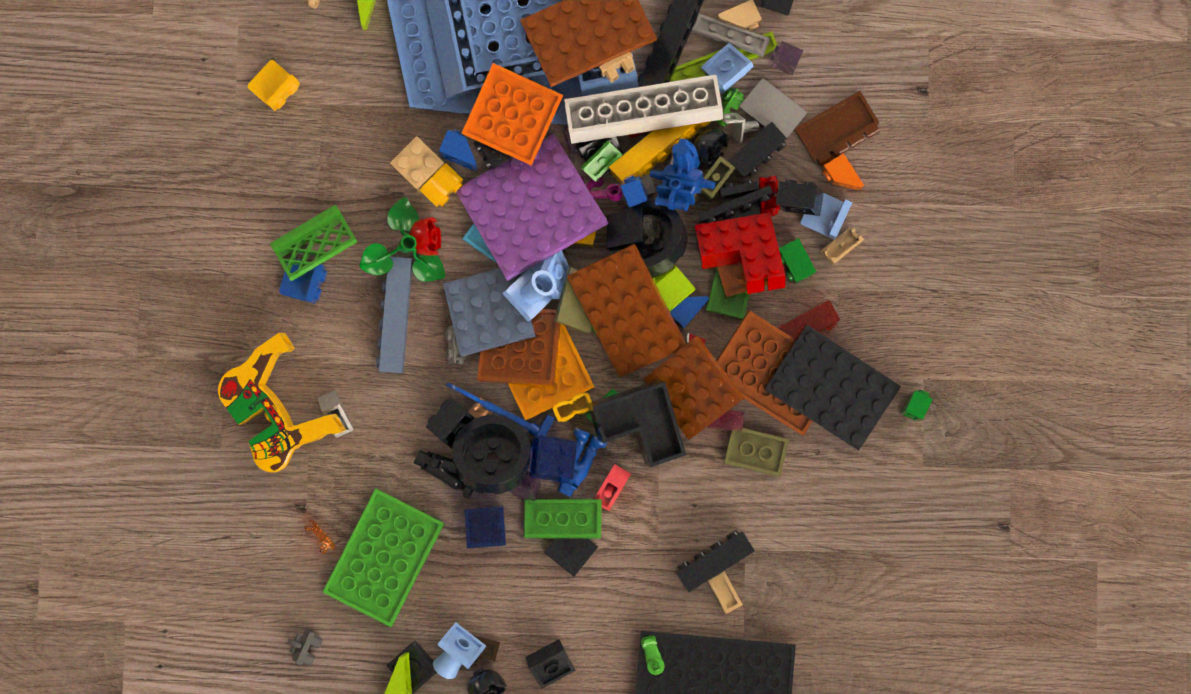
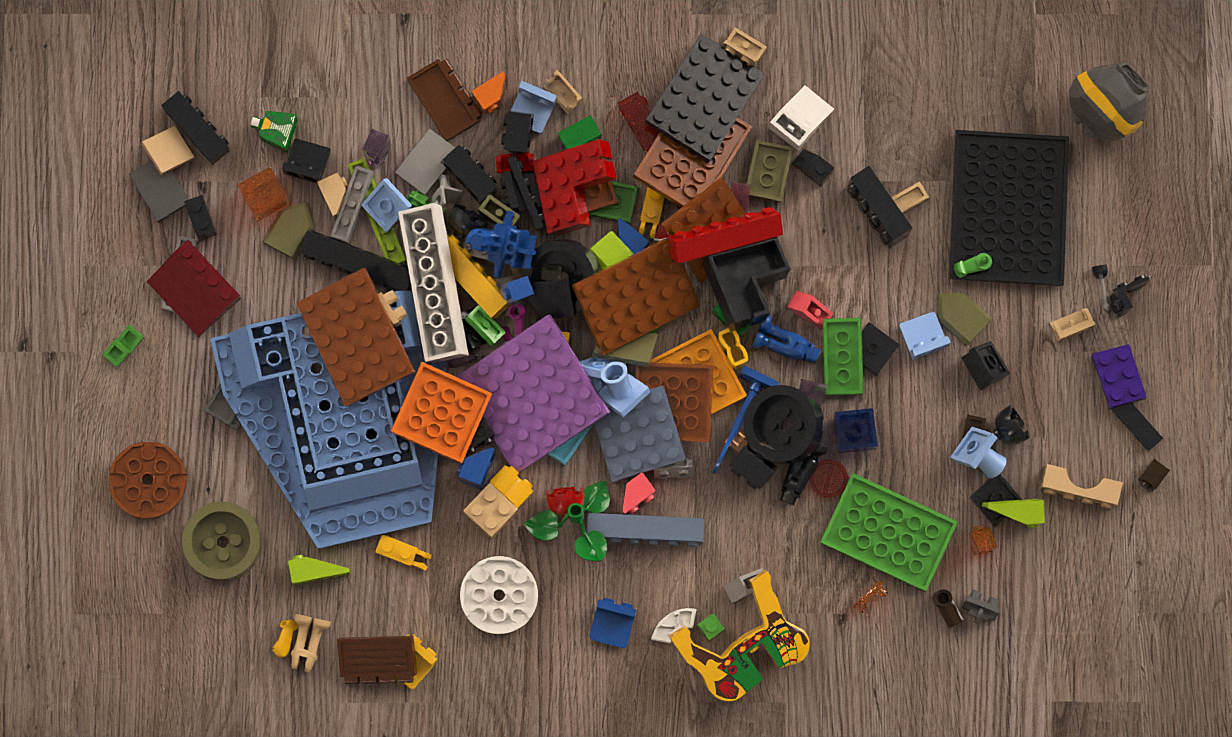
camera: 95 degrees left, 5 degrees down
(275, 51) = (377, 657): none -> reddish brown hinge
(294, 376) = (710, 627): none -> bright green brick
(301, 340) = (673, 622): none -> white tile
(303, 613) = (948, 610): none -> dark brown piece
(308, 233) = (565, 622): bright green fence -> none
(321, 157) = (493, 575): none -> white plate
(370, 650) = (982, 540): none -> clear orange slope
(382, 78) = (401, 552): none -> yellow hinge
(432, 308) = (637, 492): none -> coral slope
(440, 500) = (829, 478): none -> clear red tile
(553, 459) = (786, 363): clear blue brick -> none
(582, 602) = (923, 335): none -> light blue bracket
(602, 642) = (961, 316): none -> olive tile
(685, 402) = (725, 235): none -> red brick
(715, 331) = (651, 211): none -> yellow hinge
(760, 496) = (813, 167): none -> black slope
(811, 486) = (800, 118): none -> white slope
(886, 431) = (744, 47): none -> tan bracket
(916, 405) = (719, 17): green brick -> none

